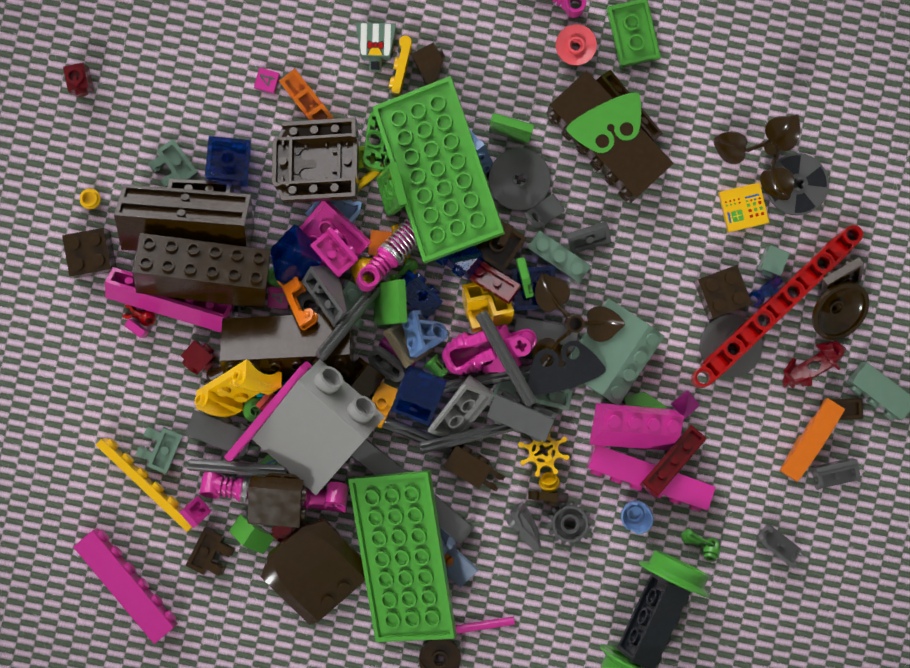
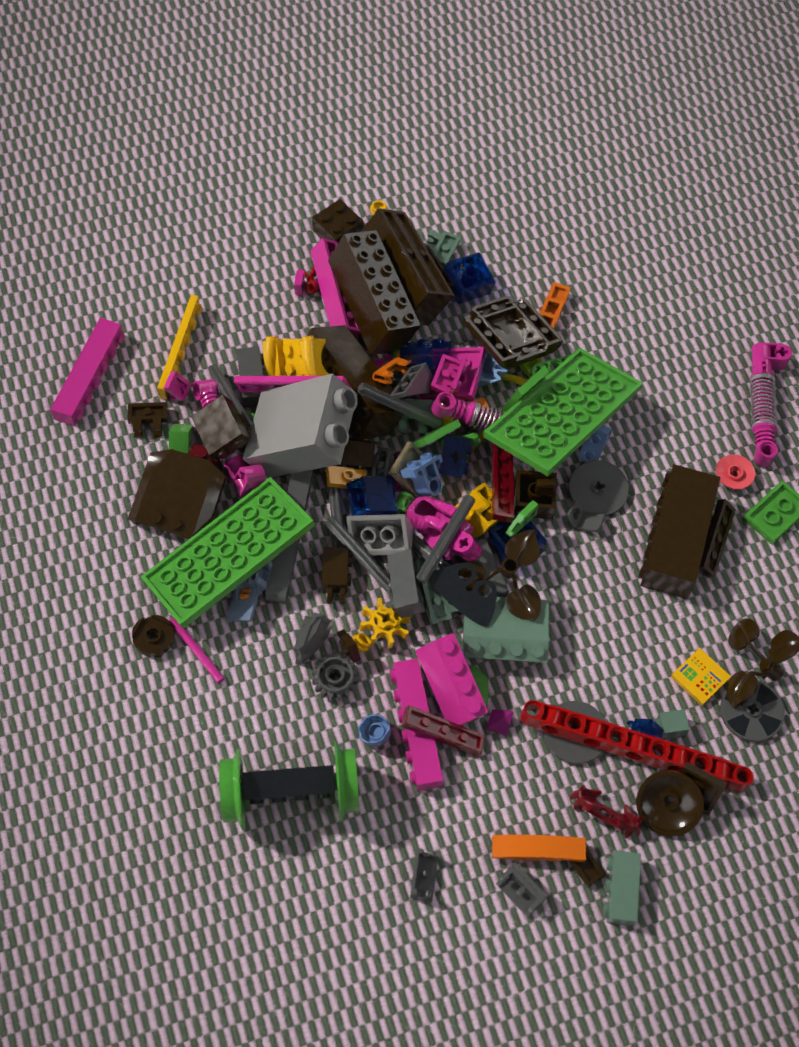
camera: 60 degrees right, 25 degrees down
(78, 79) = (462, 159): dark red brick -> none
(164, 450) = (213, 346): sand green plate -> none
(198, 357) = (301, 327): dark red brick -> none
(266, 80) = (547, 277): dark pink tile -> none
(376, 43) = (630, 332): torso -> none
(400, 65) = (629, 357): yellow plate -> none
(429, 62) = (645, 372): dark brown slope -> none
(465, 265) = (504, 466): clear blue brick -> none
(510, 128) = (634, 450): bright green tile -> none
(558, 256) = (556, 548): sand green brick -> none
(589, 237) = (588, 563): dark grey plate -> none
(595, 121) = (702, 514): bright green piece -> none
(709, 551) = (381, 814): bright green piece -> none
(722, 292) = (617, 695): dark brown brick -> none

